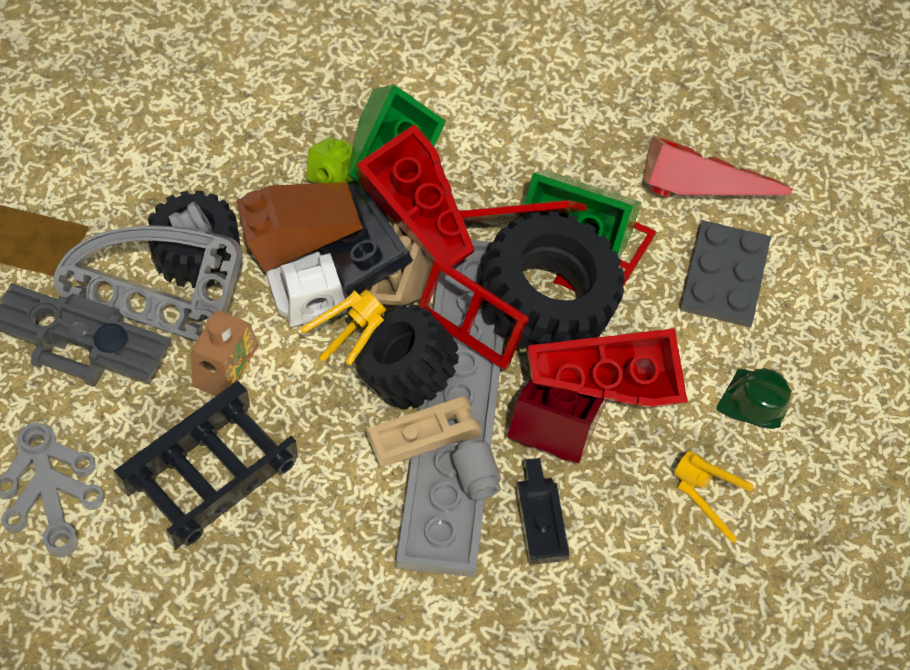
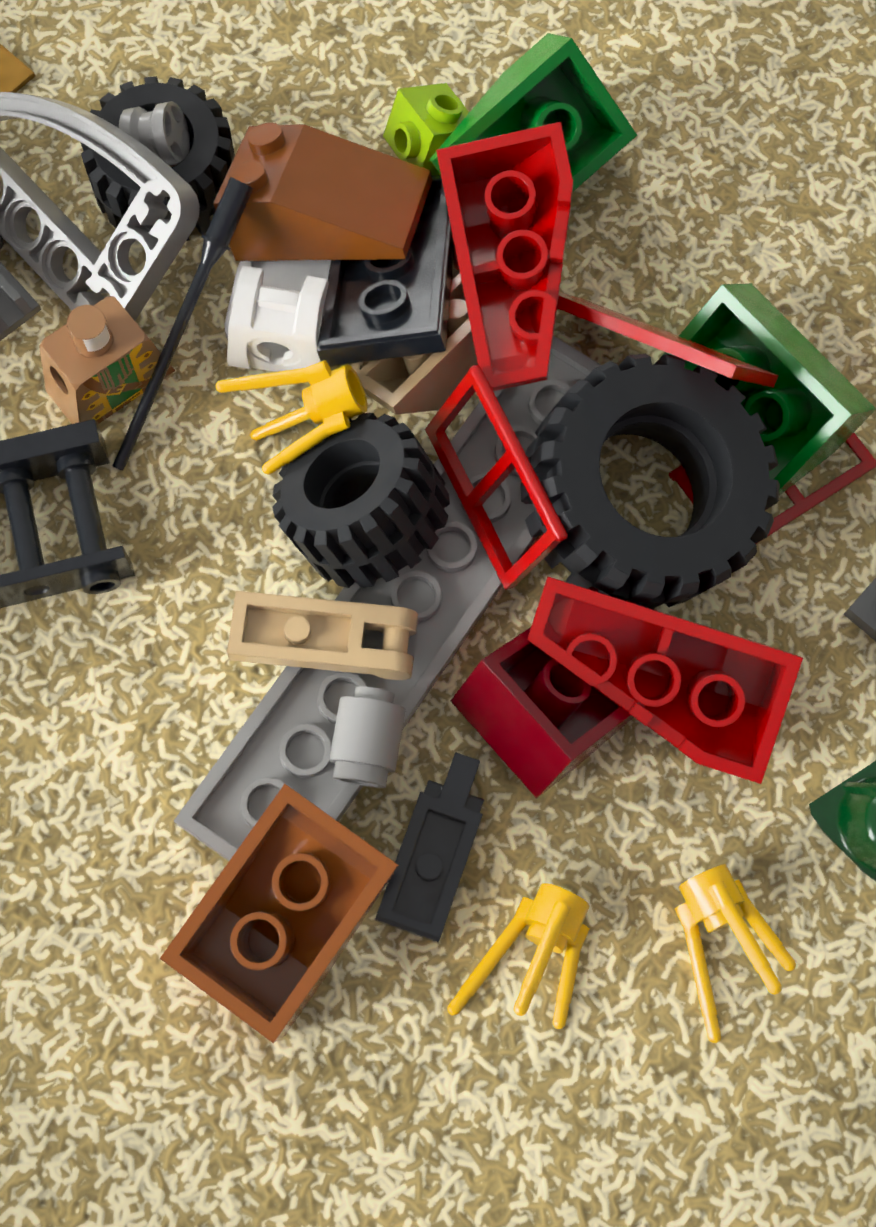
camera: 25 degrees right, 15 degrees up
(259, 260) = (214, 246): none -> black piece
(483, 572) = (280, 914): none -> dark orange slope
(623, 522) = (553, 922): none -> yellow plant

